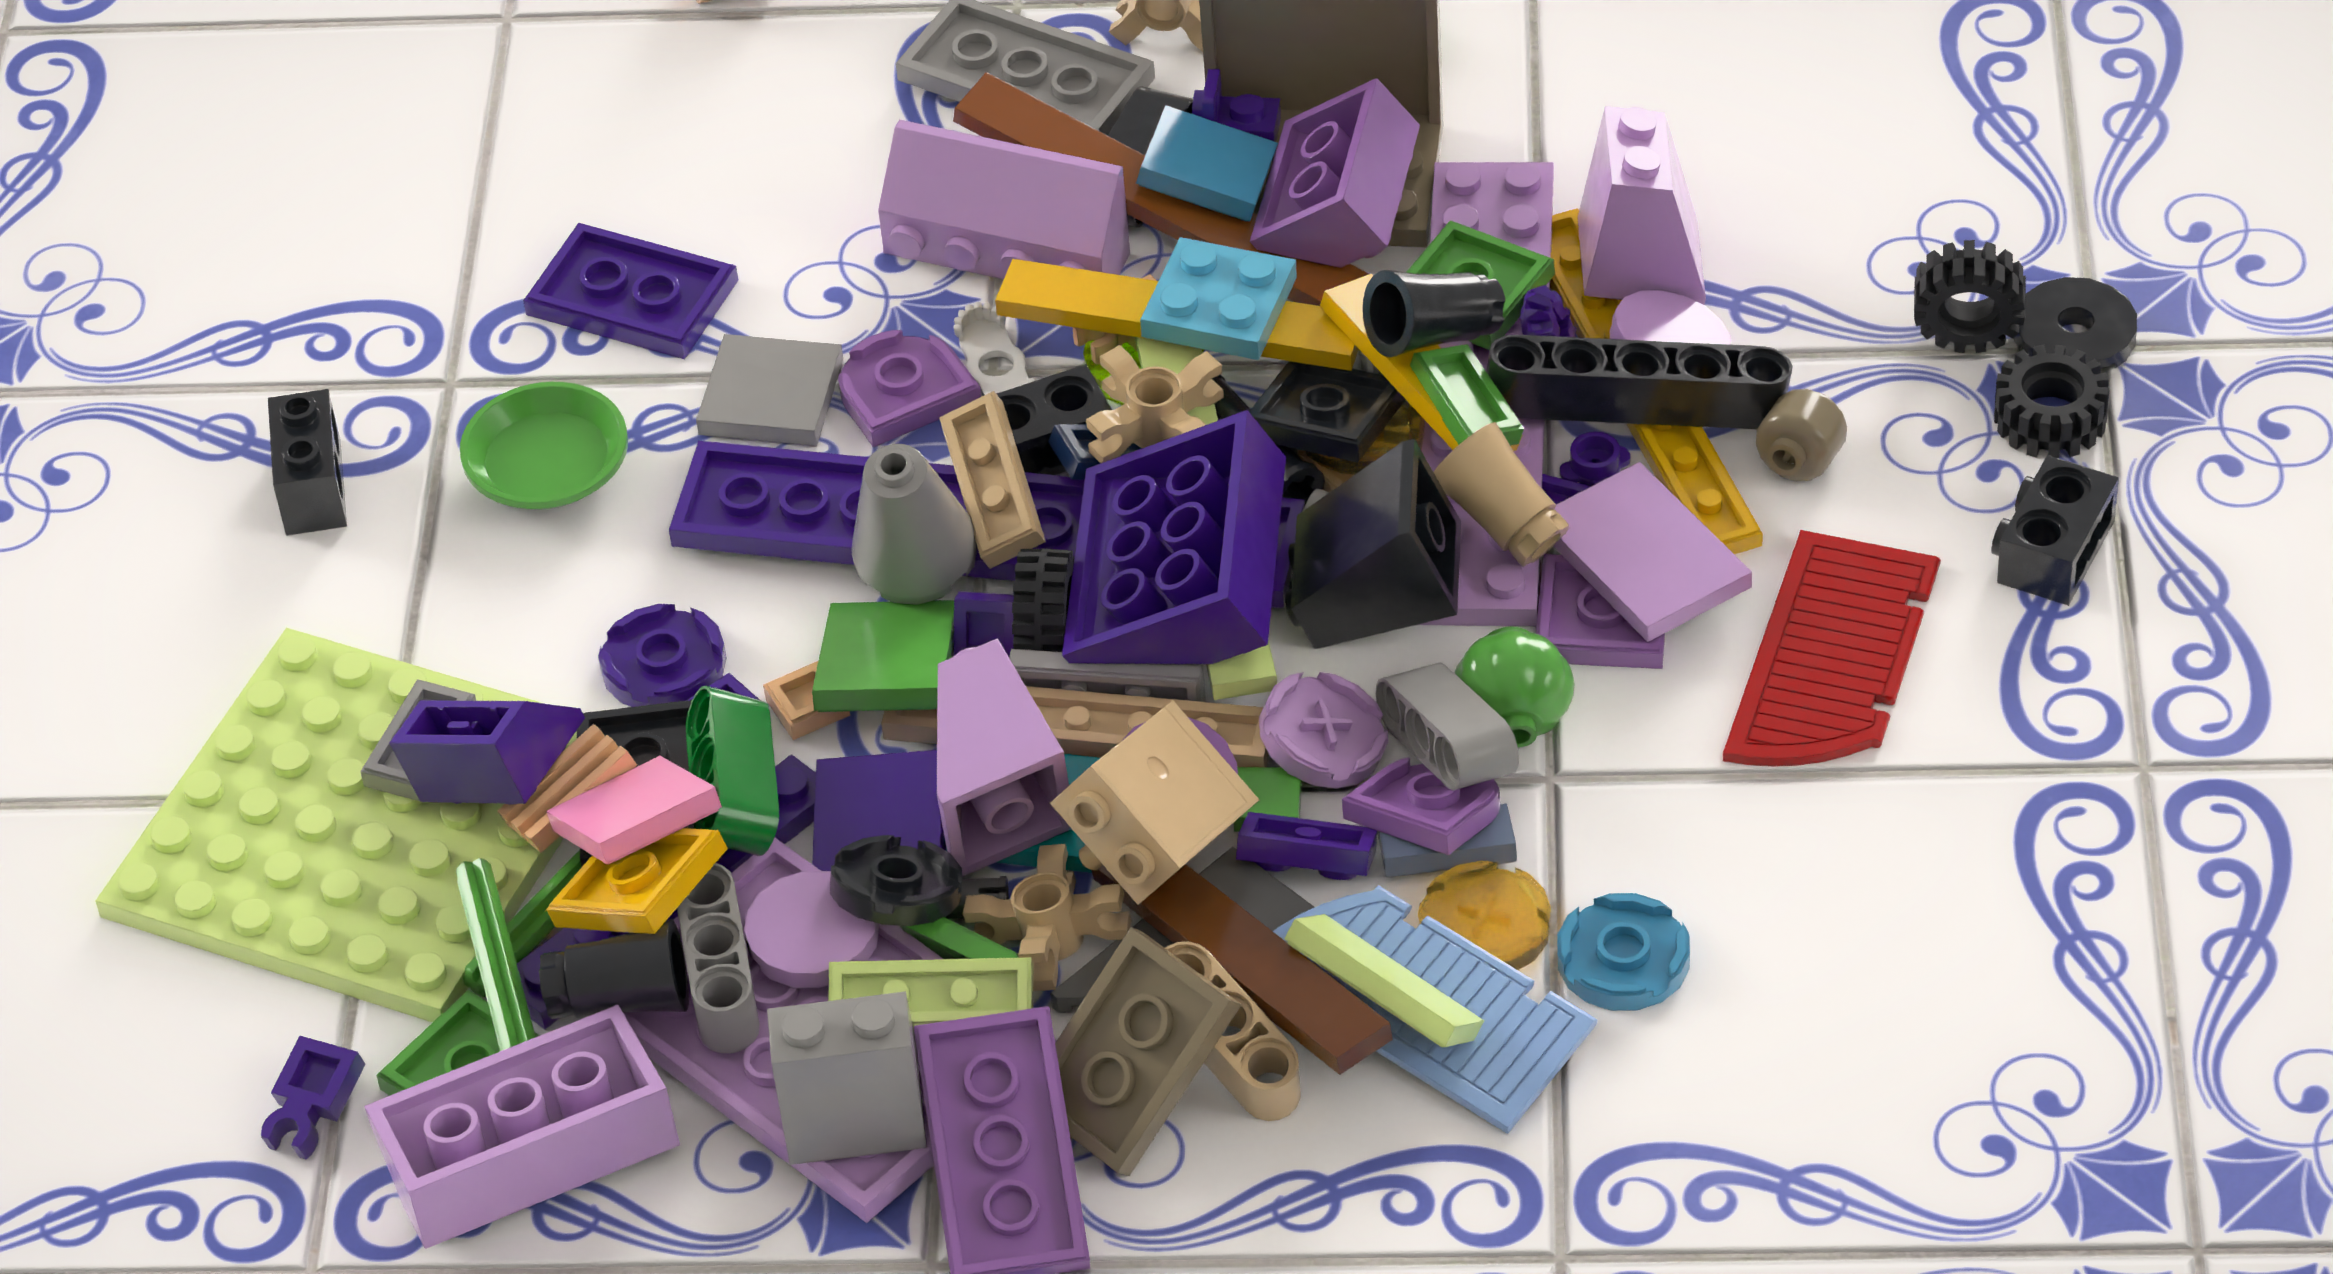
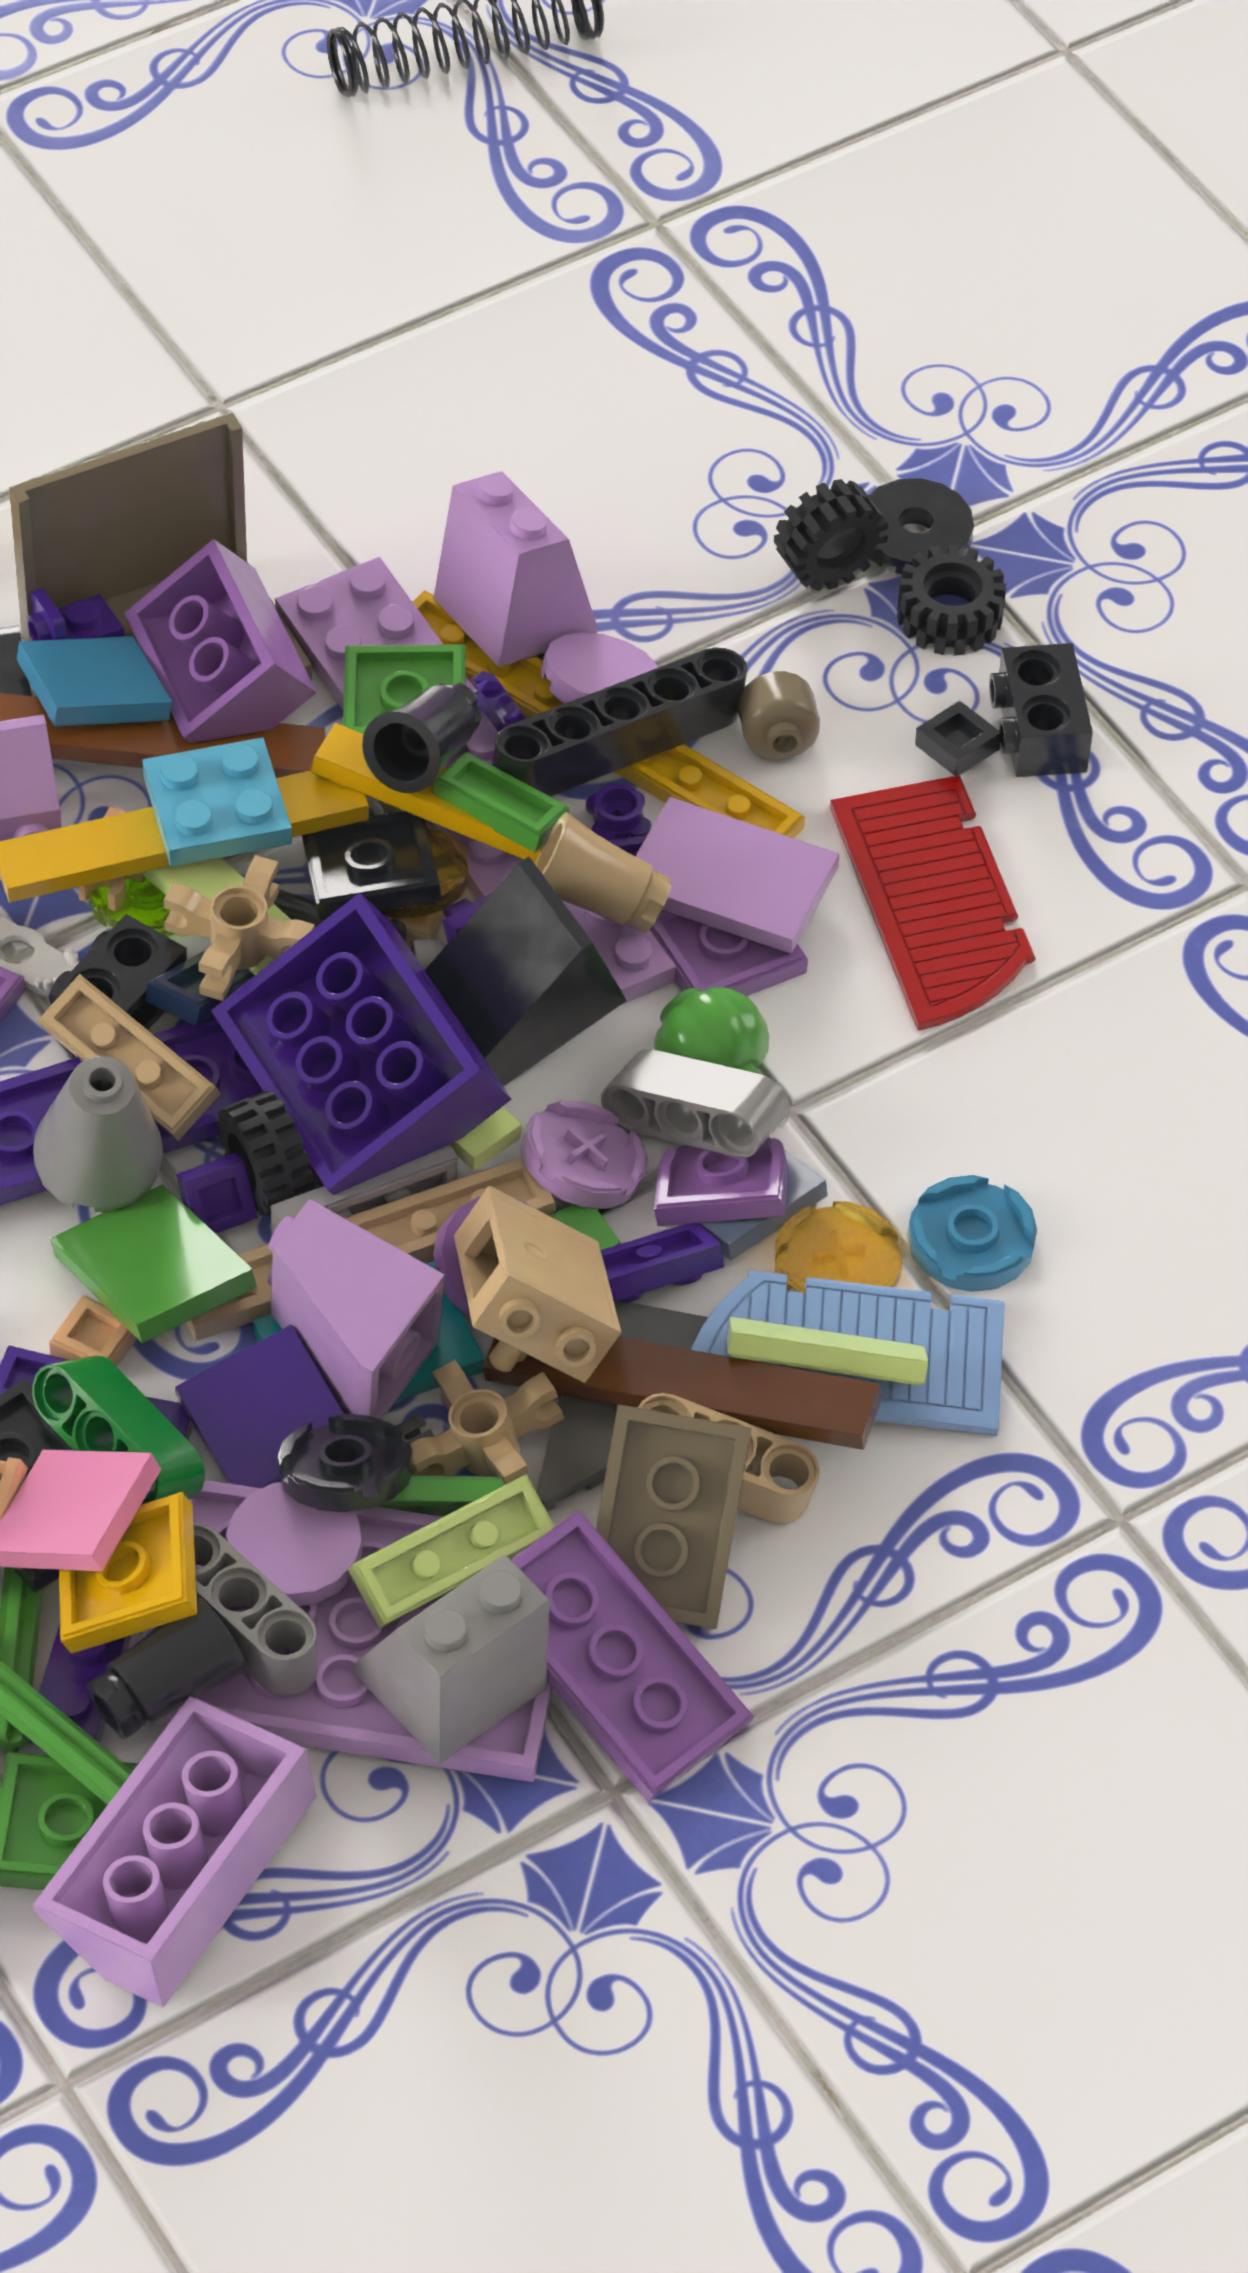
camera: 40 degrees left, 5 degrees up
(1956, 522) = (958, 738): none -> black plate

